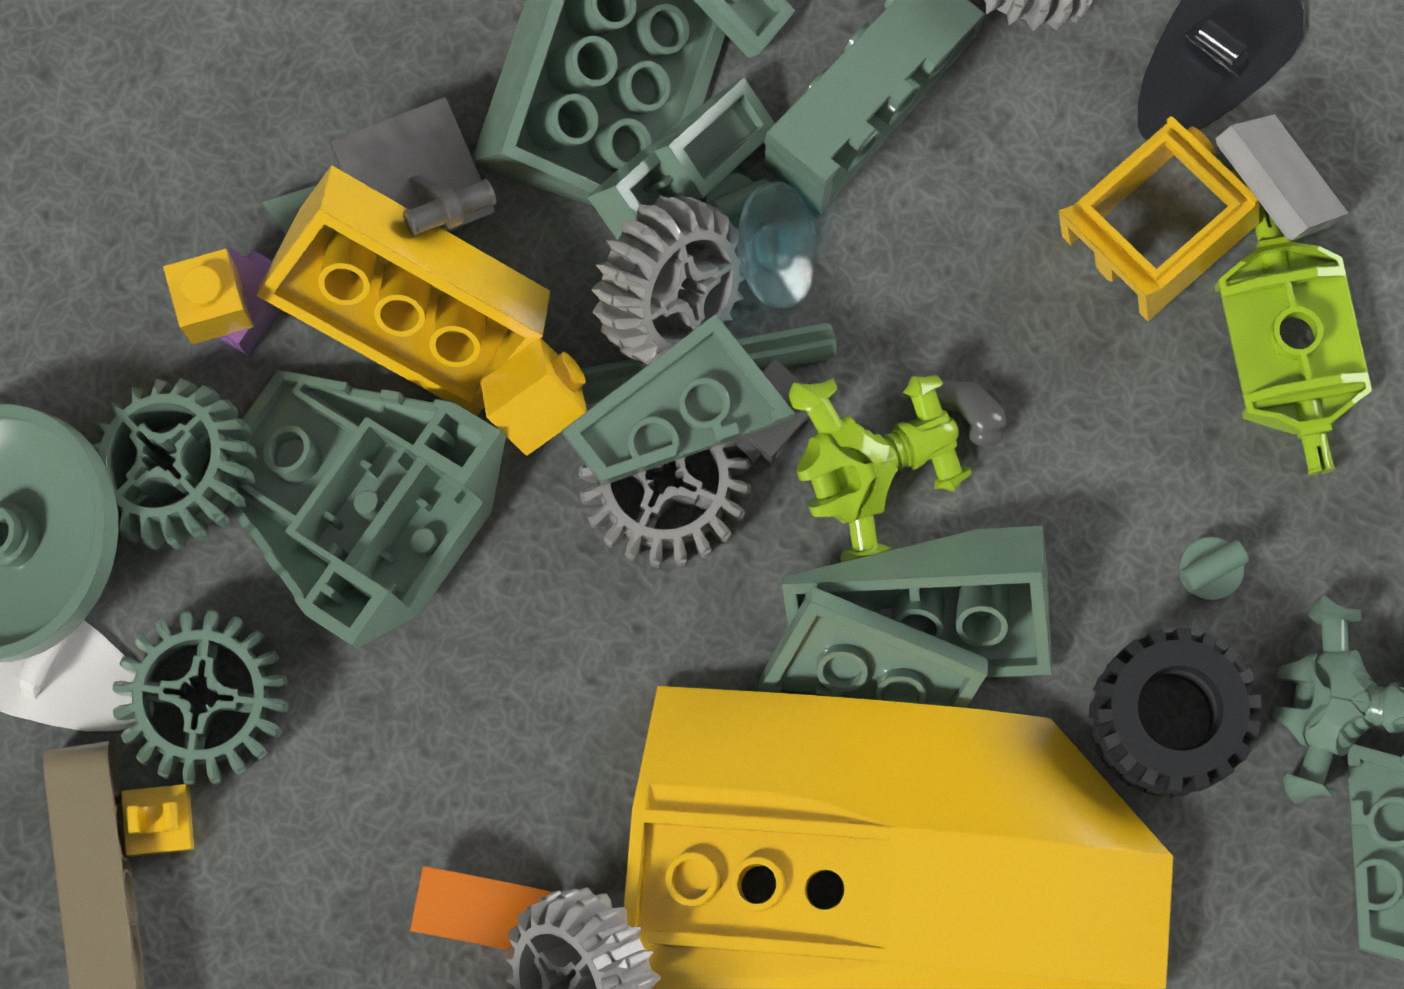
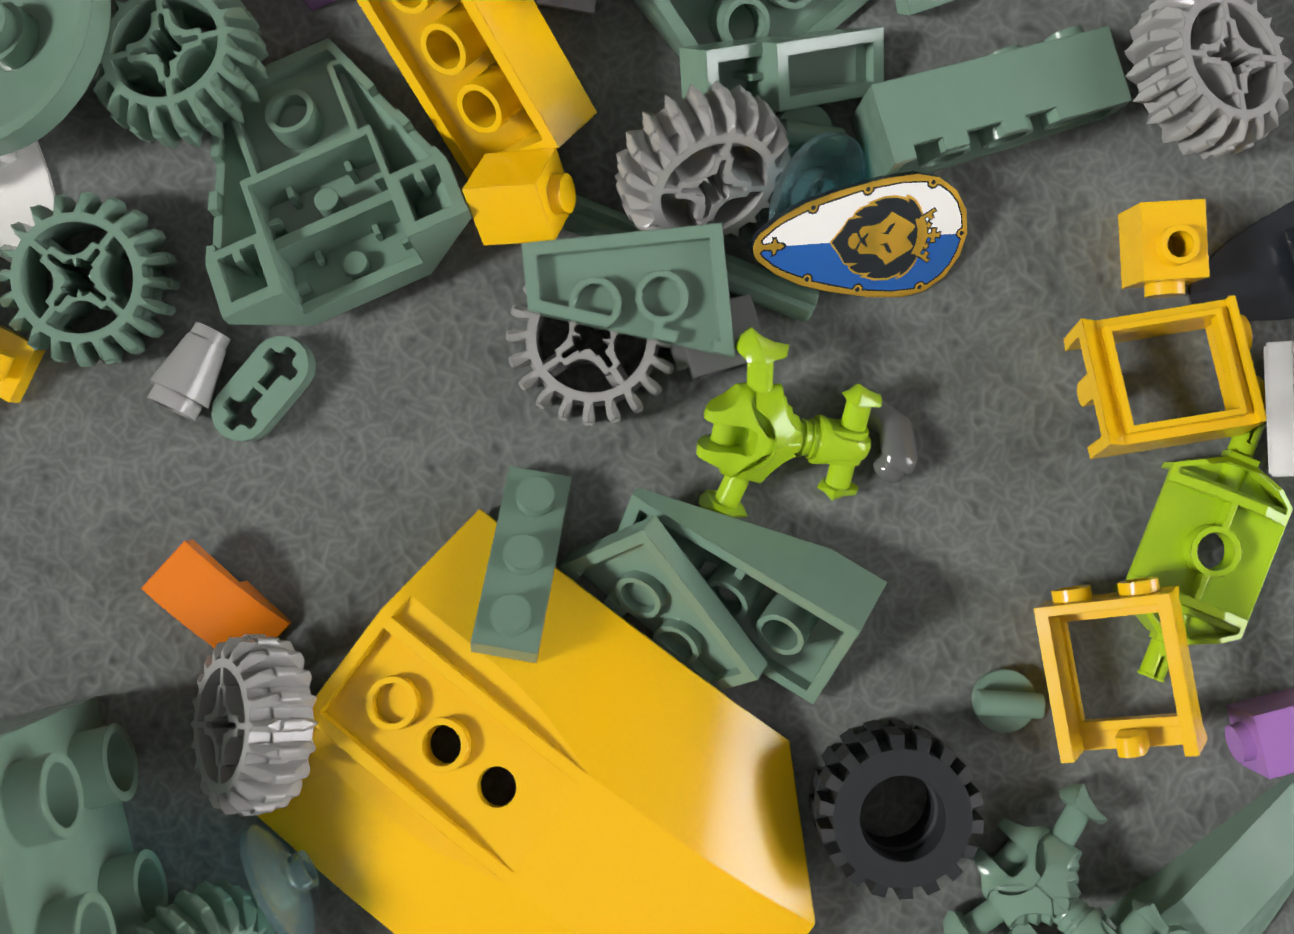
camera: 30 degrees right, 10 degrees up
(335, 725) = (190, 372): none -> light grey cone
(390, 698) = (253, 378): none -> sand green beam
(726, 702) = (521, 565): none -> sand green plate
(842, 253) = (868, 236): none -> shield
(1091, 112) = (1163, 246): none -> yellow brick
(1216, 447) = (1128, 734): none -> yellow window

